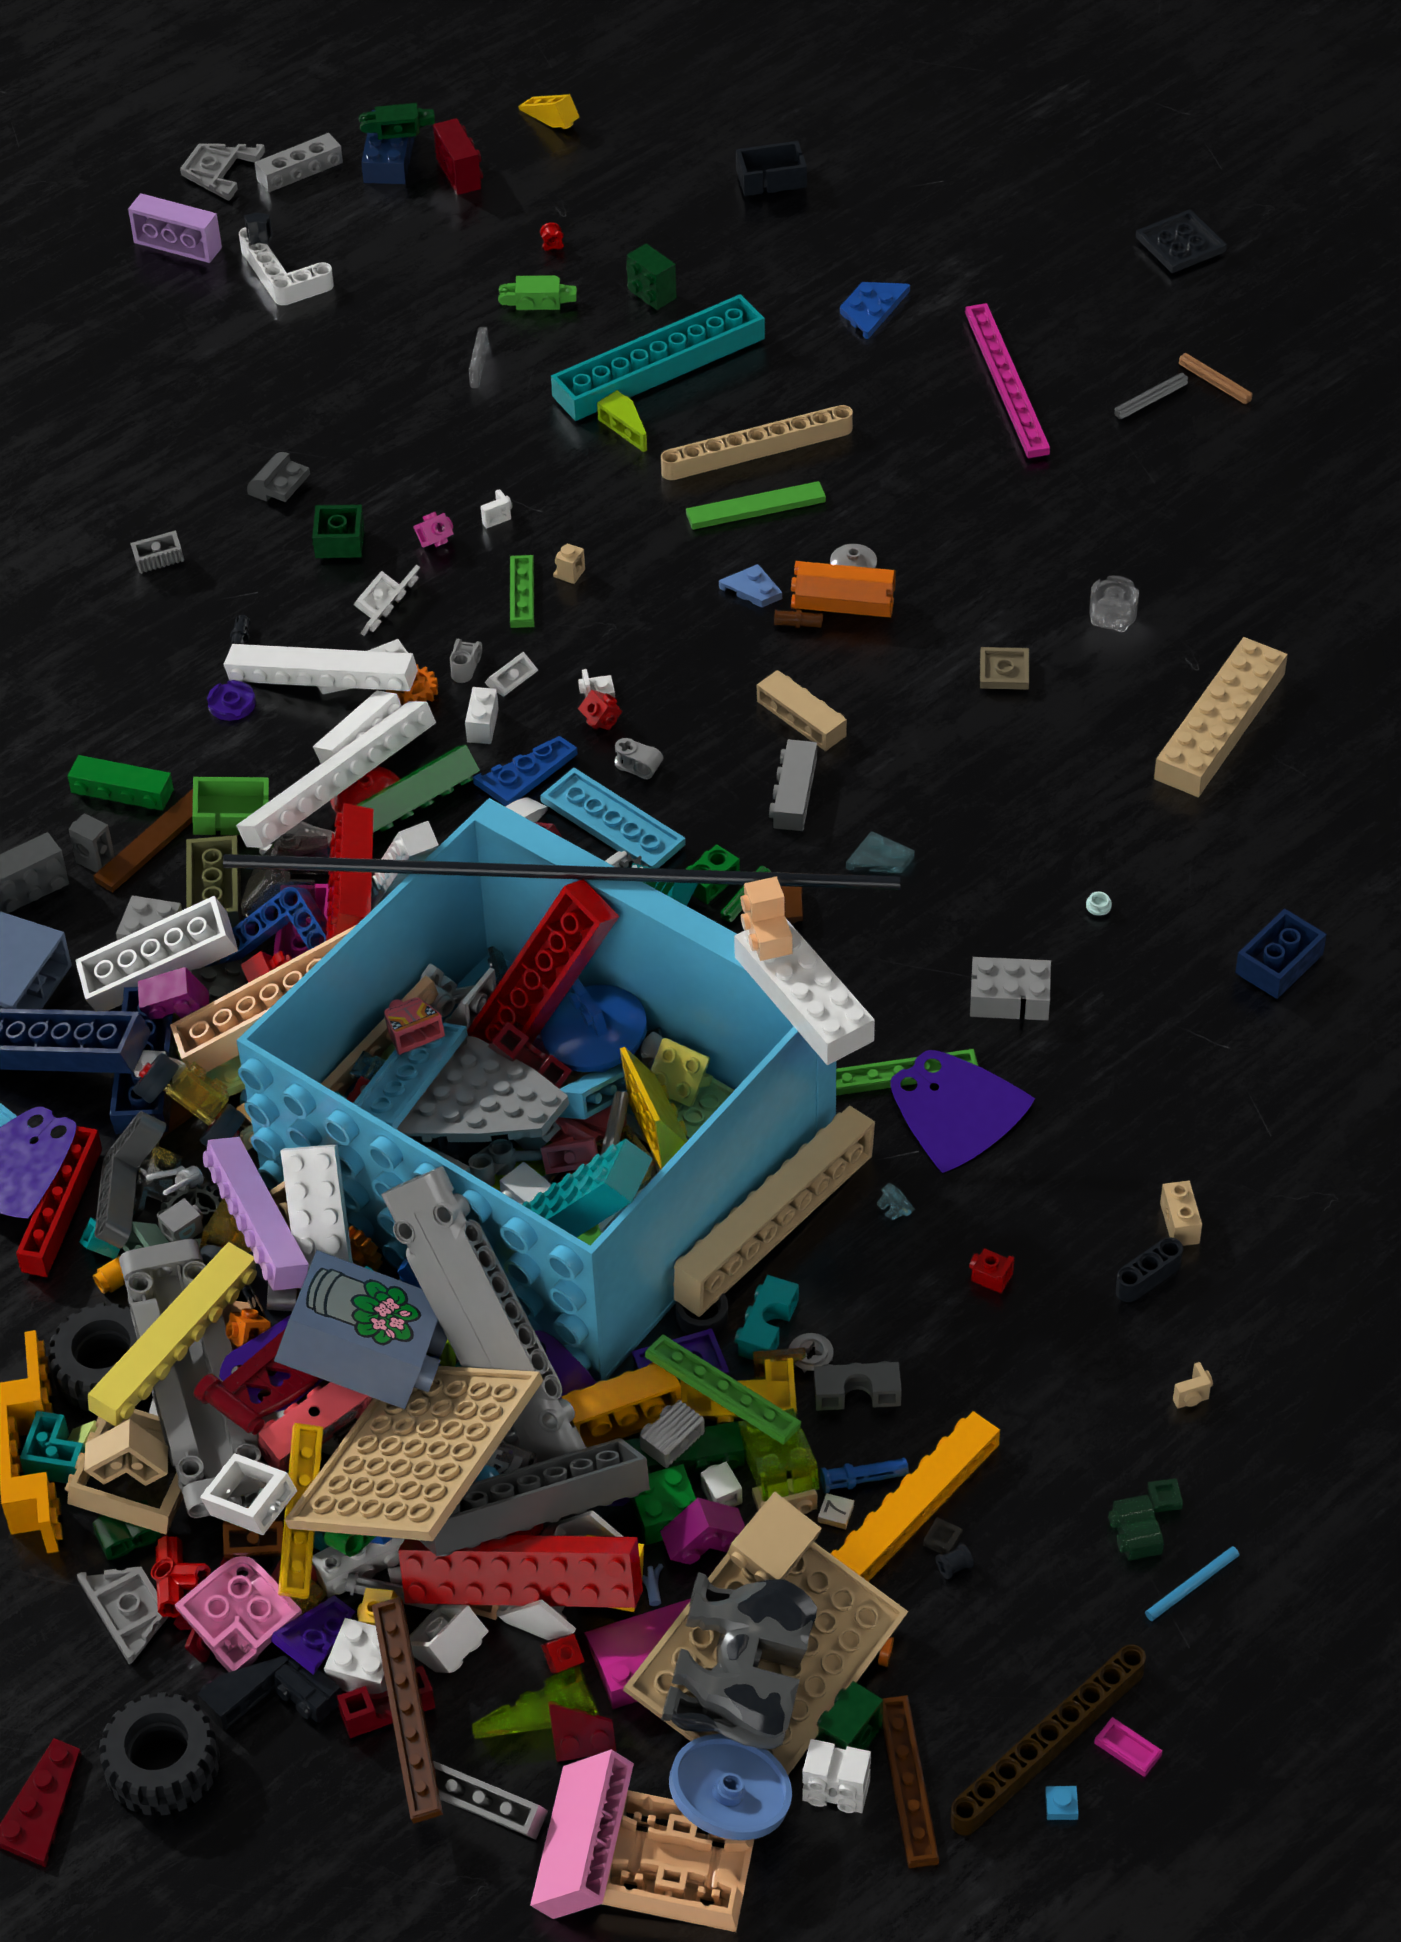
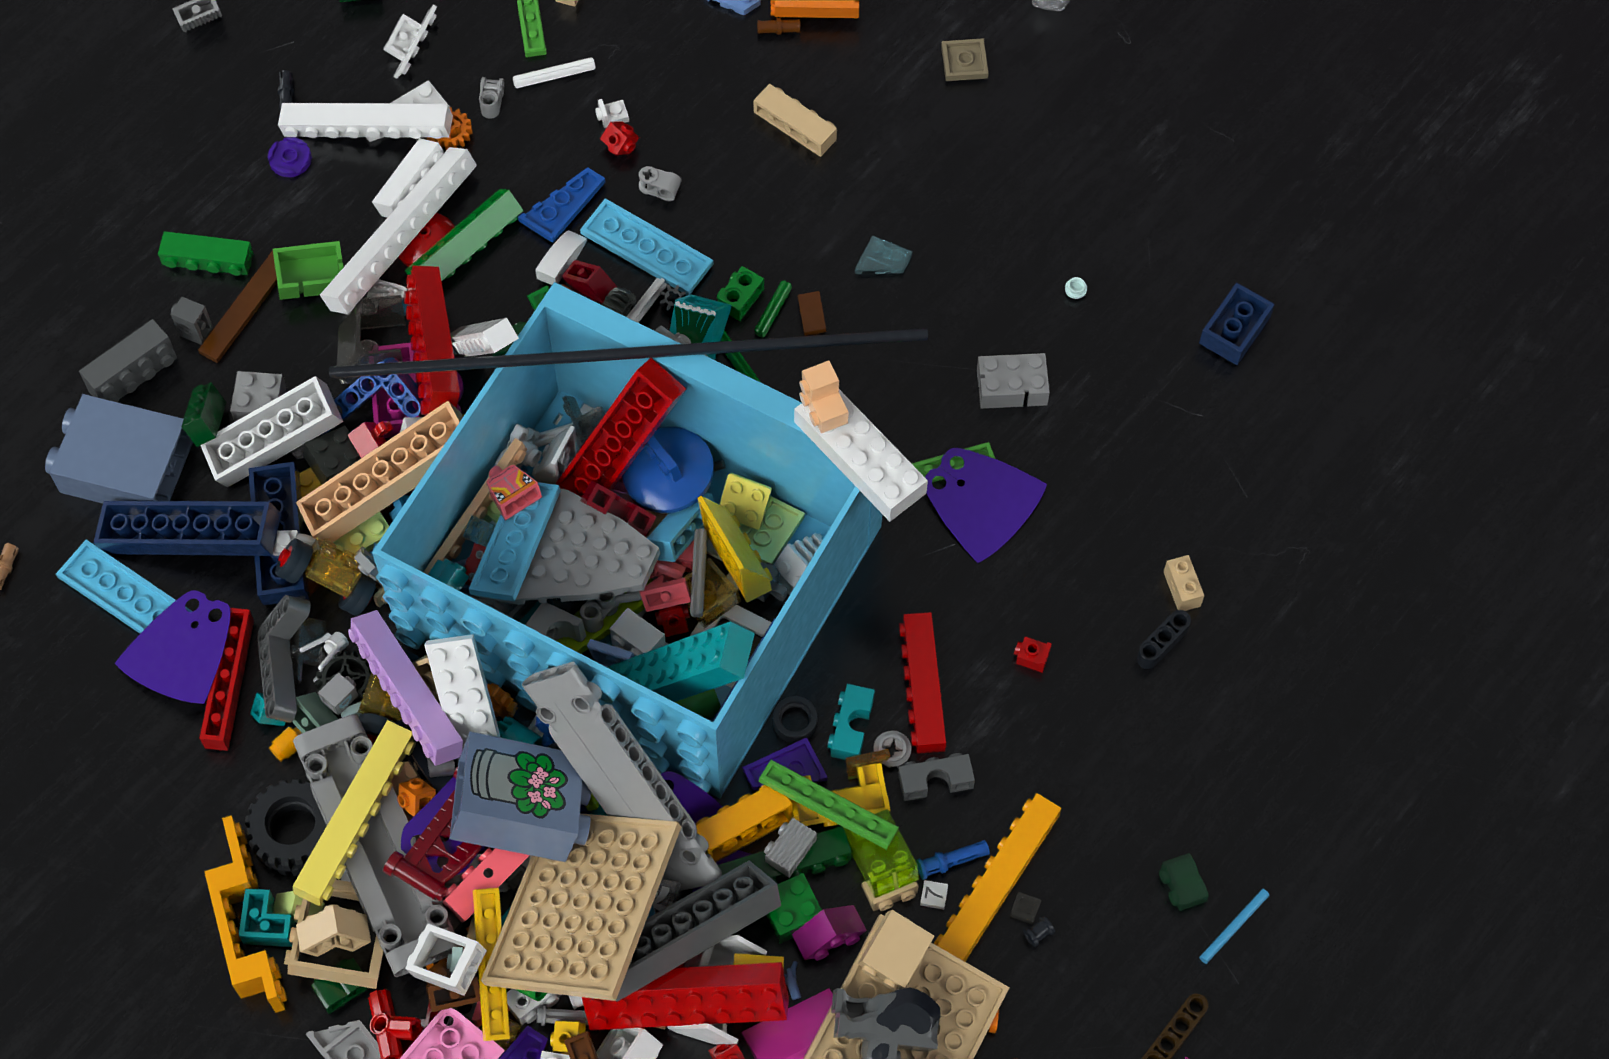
camera: 10 degrees left, 15 degrees up
(85, 931) = (204, 414): none -> dark green brick
(172, 993) = (294, 474): magenta brick -> none
(209, 878) = (306, 344): olive brick -> none
(236, 1092) = (366, 563): none -> light grey wing
(481, 715) = (515, 153): white brick -> none
(512, 674) = (535, 107): white slope -> none
(539, 643) = (554, 72): none -> white axle
(649, 1049) = (718, 481): white plate -> none
(721, 1485) = (836, 885): white brick -> none
(773, 1210) = (844, 623): tan brick -> none
(794, 785) = (799, 197): light grey brick -> none
(858, 1287) = (923, 683): none -> red brick
(897, 1200) = (947, 598): clear light blue tile -> none
(1165, 1495) = (1203, 849): clear green plate -> none
(1193, 1390) = (1214, 750): tan bracket -> none
(1220, 717) = (1157, 92): tan brick -> none

